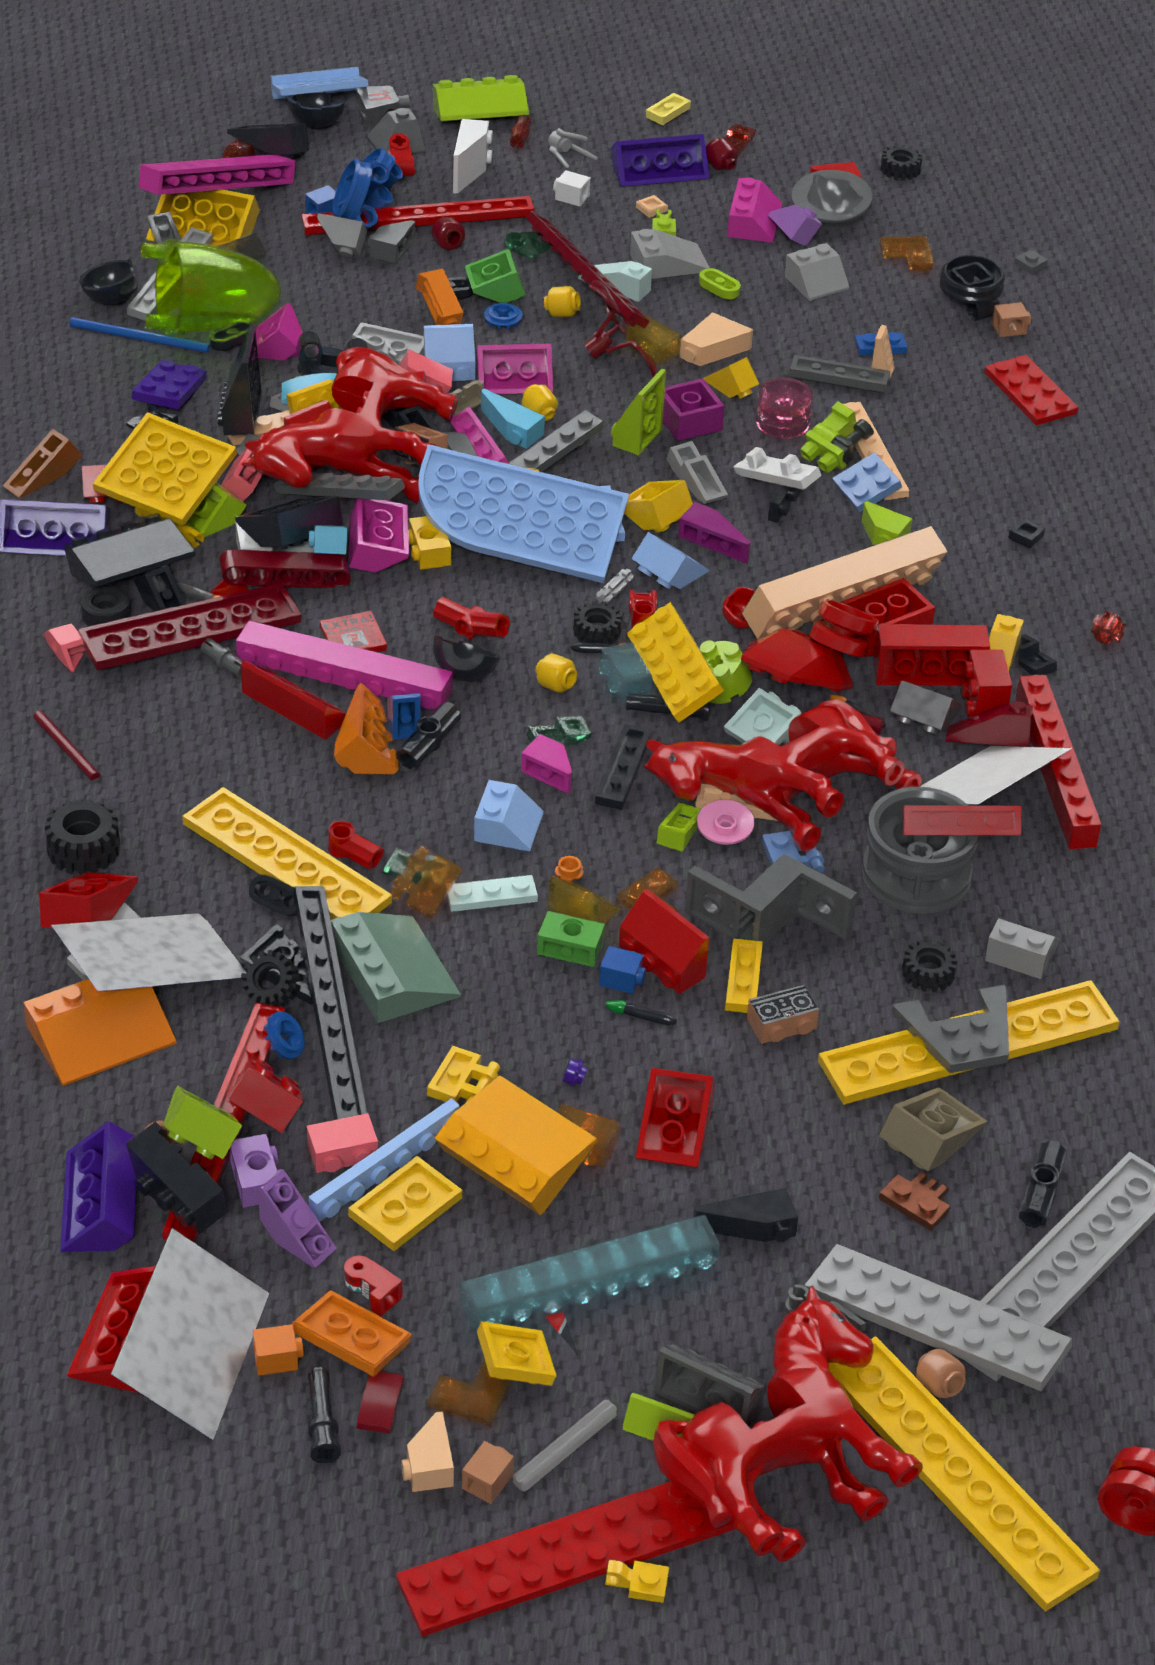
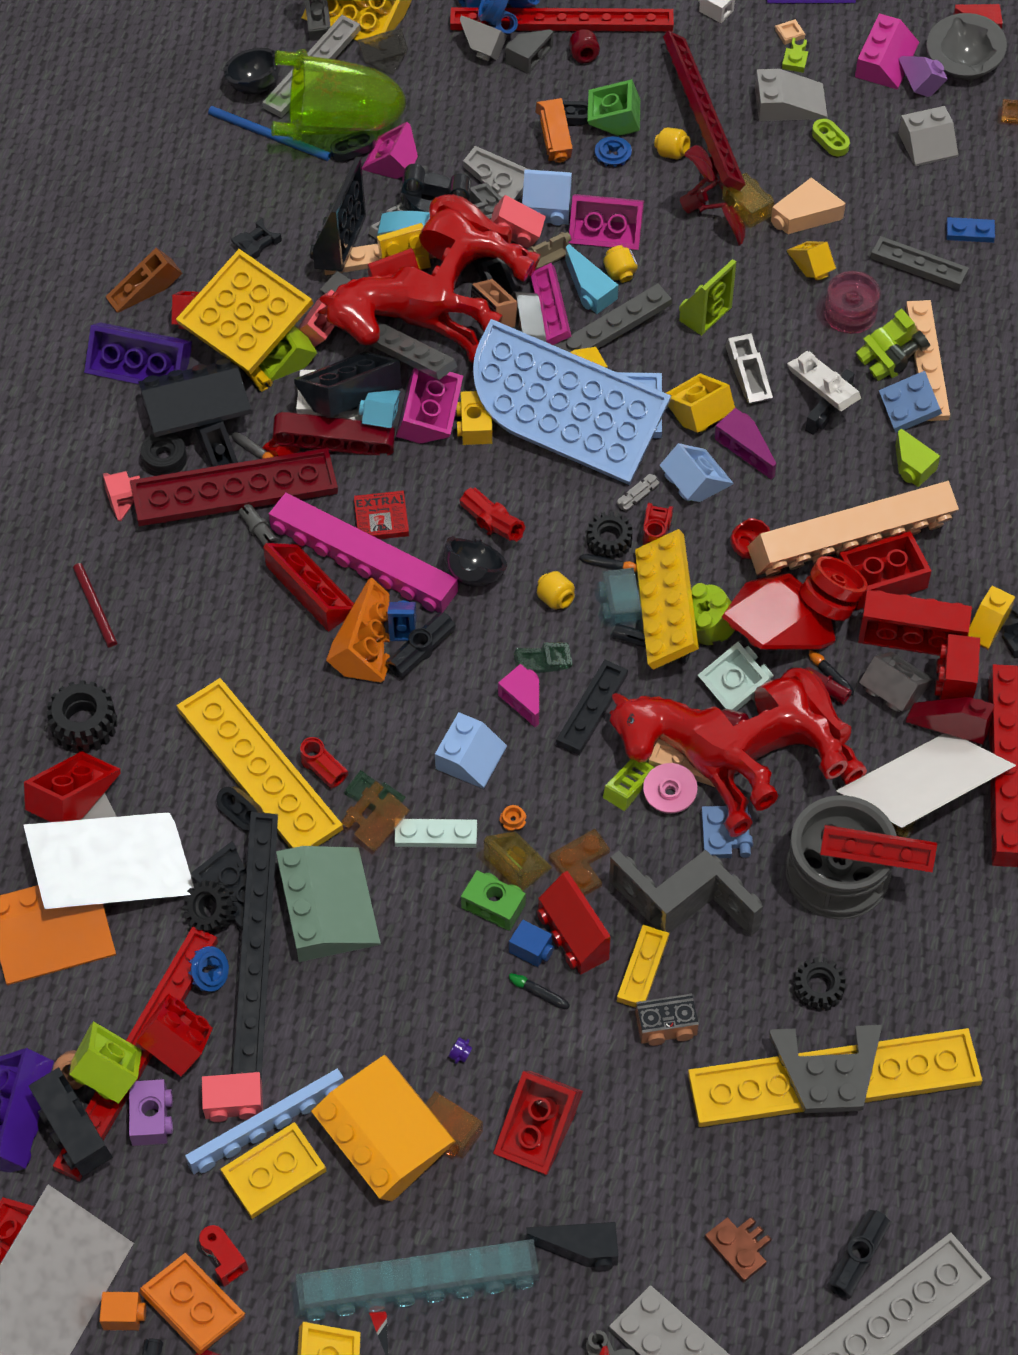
camera: 15 degrees right, 15 degrees up
(169, 384) = (281, 198): dark purple plate -> none
(292, 1221) = (167, 1179): medium lavender slope -> none
(455, 1074) = (352, 1034): yellow plate -> none
(525, 244) = (655, 65): clear green plate -> none
(629, 277) = (740, 121): light aqua slope -> none
(692, 410) = (761, 292): magenta brick -> none
(882, 351) = (965, 247): light nougat slope -> none
(930, 1127) = (773, 1170): dark tan slope -> none
(1020, 948) = (913, 975): light grey slope -> none

